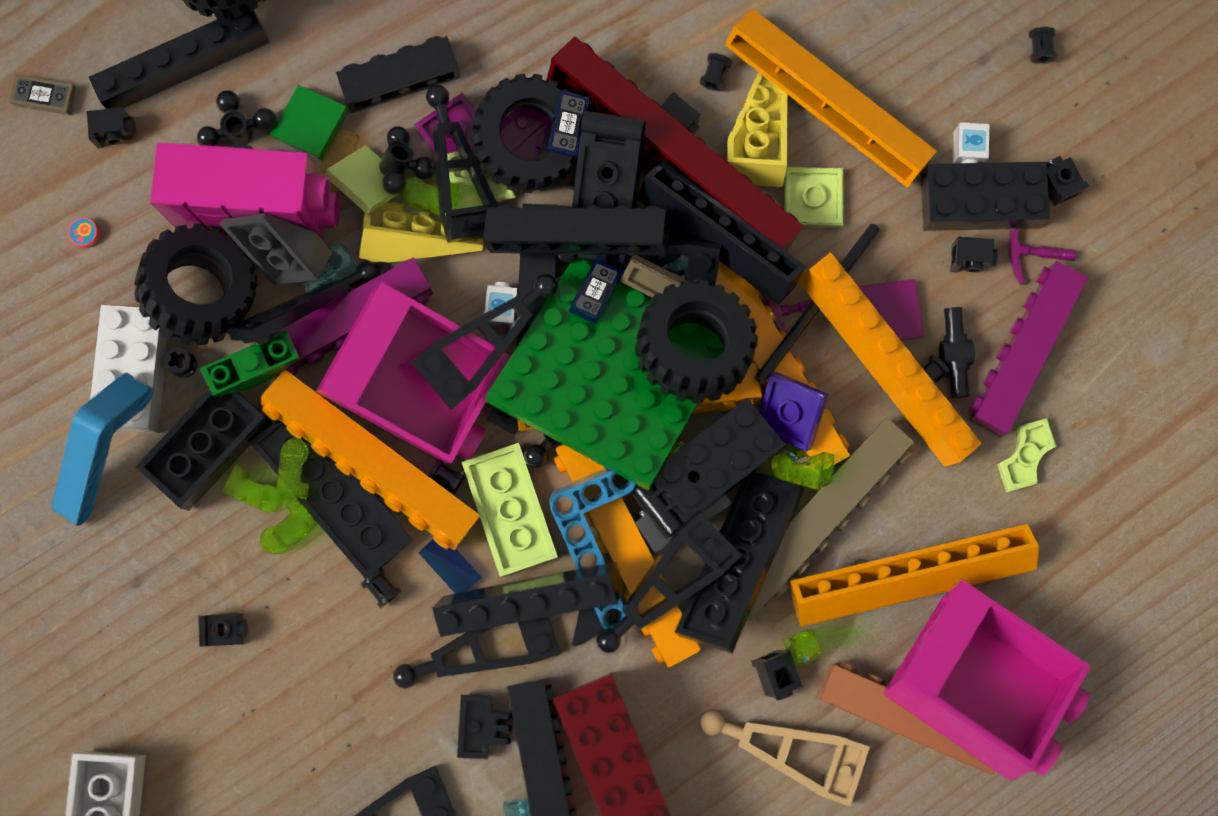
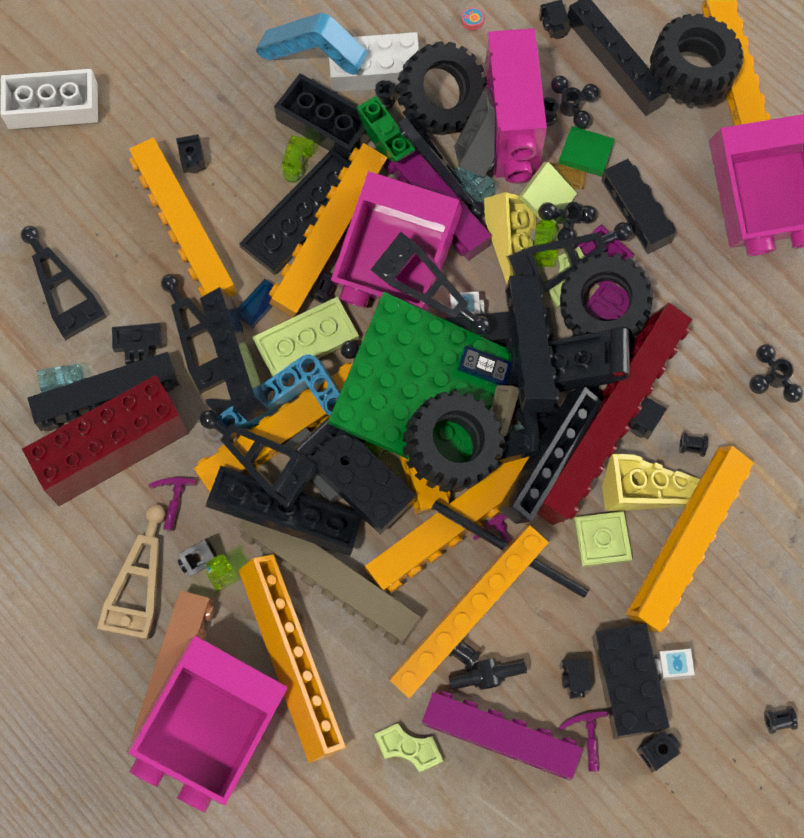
camera: 85 degrees right, 10 degrees down
(289, 530) = (269, 186): clear neon green leg -> none
(292, 458) = (313, 176): clear neon green leg -> none
(316, 652) = (180, 217): none -> light orange brick
(380, 587) = (234, 255): black bush -> none
(567, 123) = (608, 319): tile -> none
(701, 698) = (174, 503): none -> magenta piece
(793, 410) = (412, 535): dark purple tile -> none
(804, 470) = (365, 550): clear neon green leg -> none
(898, 306) = (516, 615): magenta tile -> none

